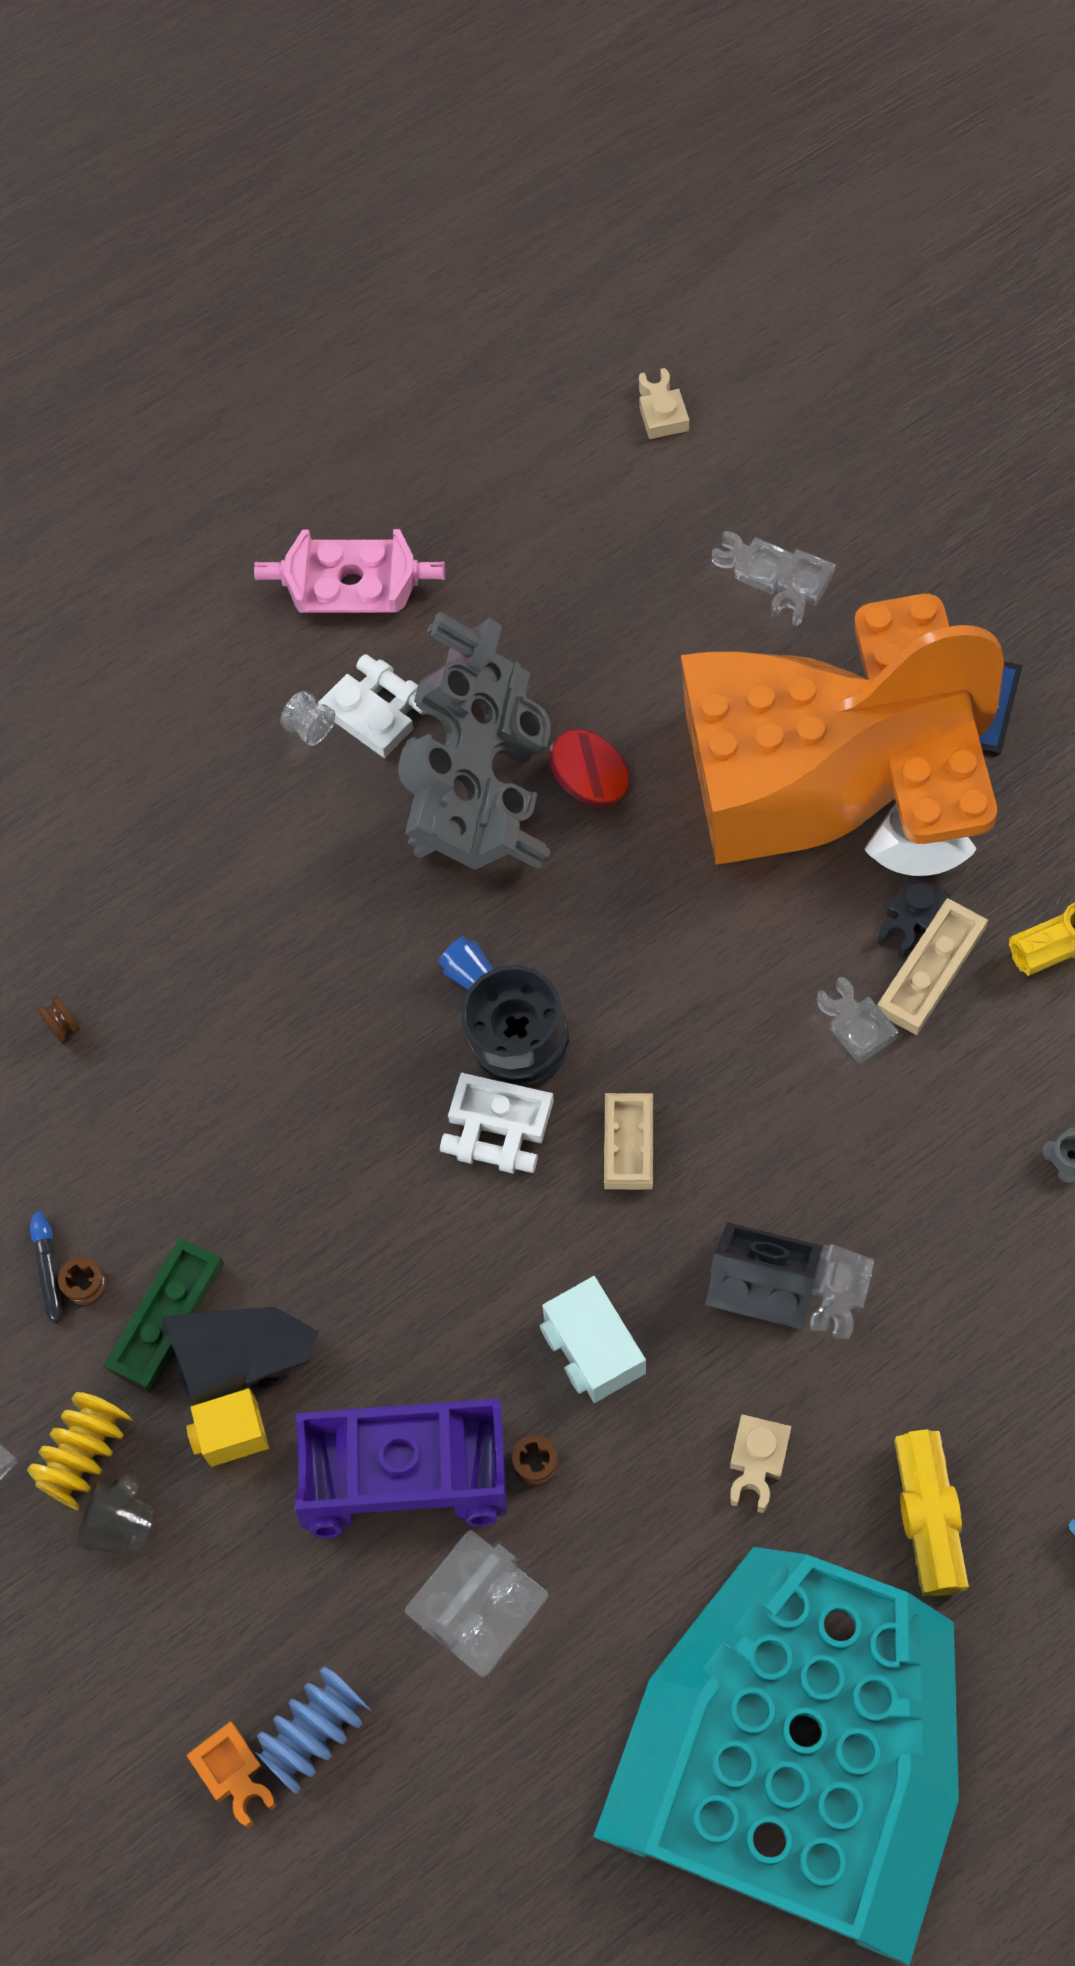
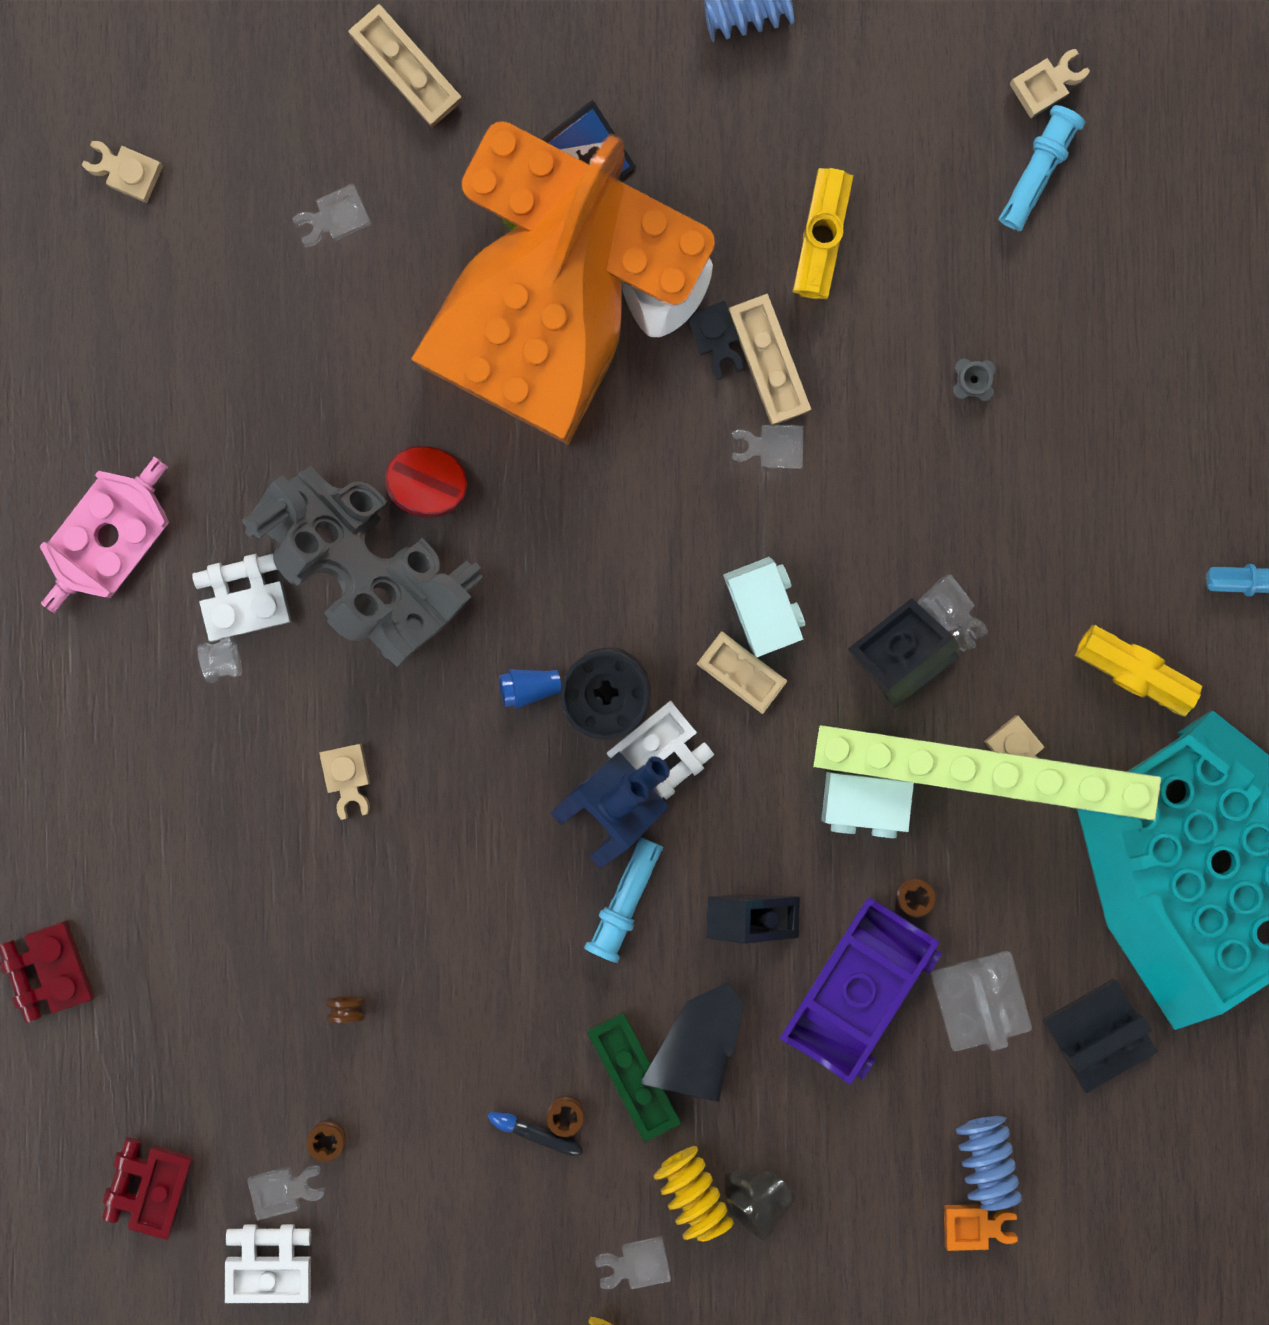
camera: 65 degrees left, 25 degrees up
(227, 1428) = (749, 1087): yellow brick -> none
(278, 881) = (345, 772): none -> tan plate
(310, 1193) = (618, 916): none -> medium azure pin
(401, 1314) = (752, 918): none -> black slope
(419, 1105) = (620, 801): none -> dark blue piece
(528, 1760) = (1100, 1035): none -> black bracket
(705, 1111) = (764, 606): none -> light aqua brick
(716, 1424) = (988, 772): none -> yellowish green brick
(801, 582) = (381, 194): clear plate -> none
(922, 532) = (405, 65): none -> tan plate

